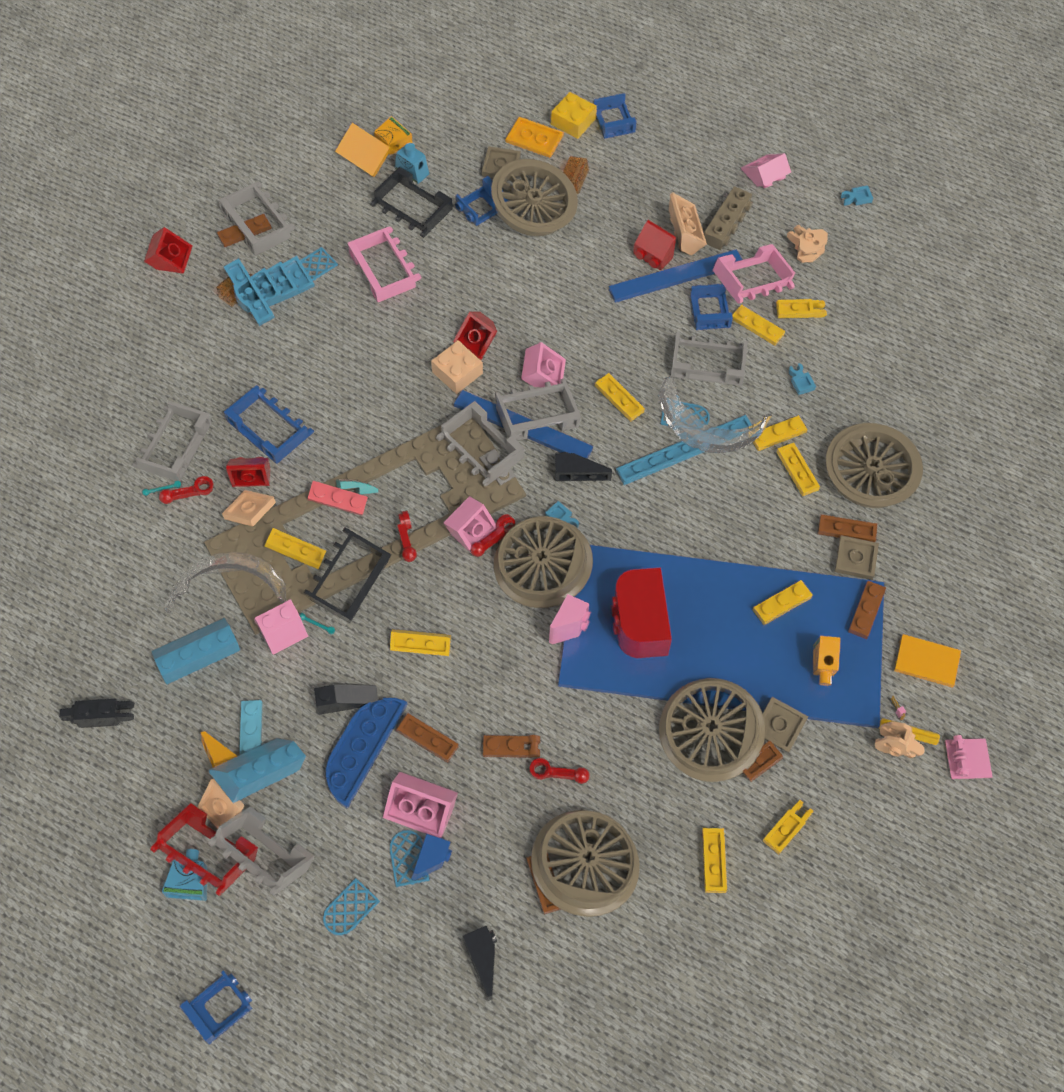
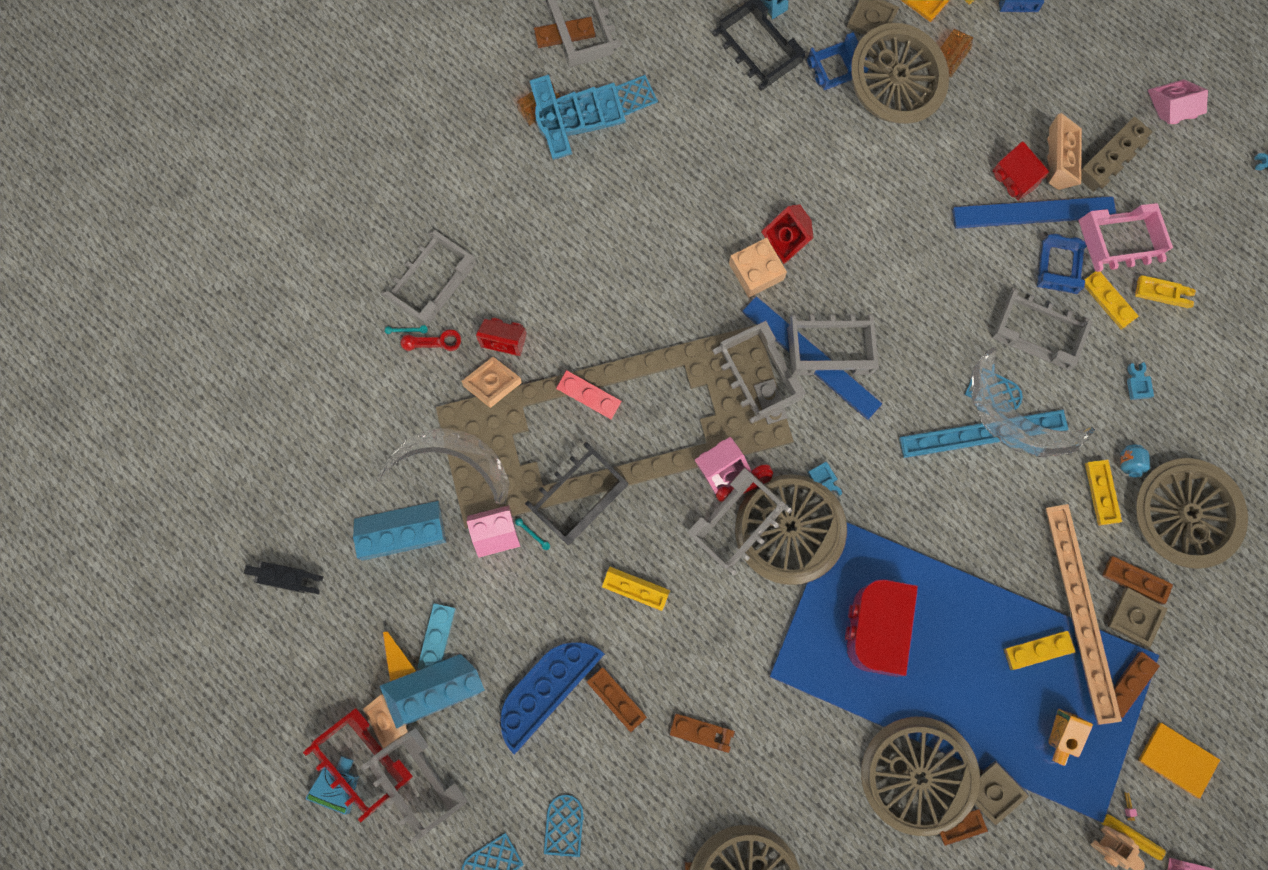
camera: 15 degrees right, 15 degrees up
(168, 252) = (475, 40): red slope -> none
(275, 454) = (498, 264): blue hinge -> none
(295, 548) = (529, 443): yellow plate -> none
(343, 697) = (542, 630): black slope -> none
(360, 487) = (618, 388): teal slope -> none
(374, 239) = (702, 81): bright pink hinge -> none
(409, 553) = (649, 482): red piece -> none
(419, 804) = (590, 773): bright pink slope -> none
(432, 856) = (586, 836): blue slope -> none
(489, 531) = (704, 525): none -> light grey hinge
(542, 366) = (852, 292): bright pink slope -> none
(569, 620) = (802, 613): bright pink slope -> none
(577, 468) = (856, 426): black slope -> none
(580, 775) = (765, 787): red piece -> none
(619, 397) = (928, 350): yellow plate -> none
(780, 432) = (1103, 440): yellow plate -> none
(808, 242) = (1200, 211): light nougat hinge -> none
(810, 565) = (1083, 615): none -> light nougat plate
(816, 438) = (1134, 460): none -> dark azure head

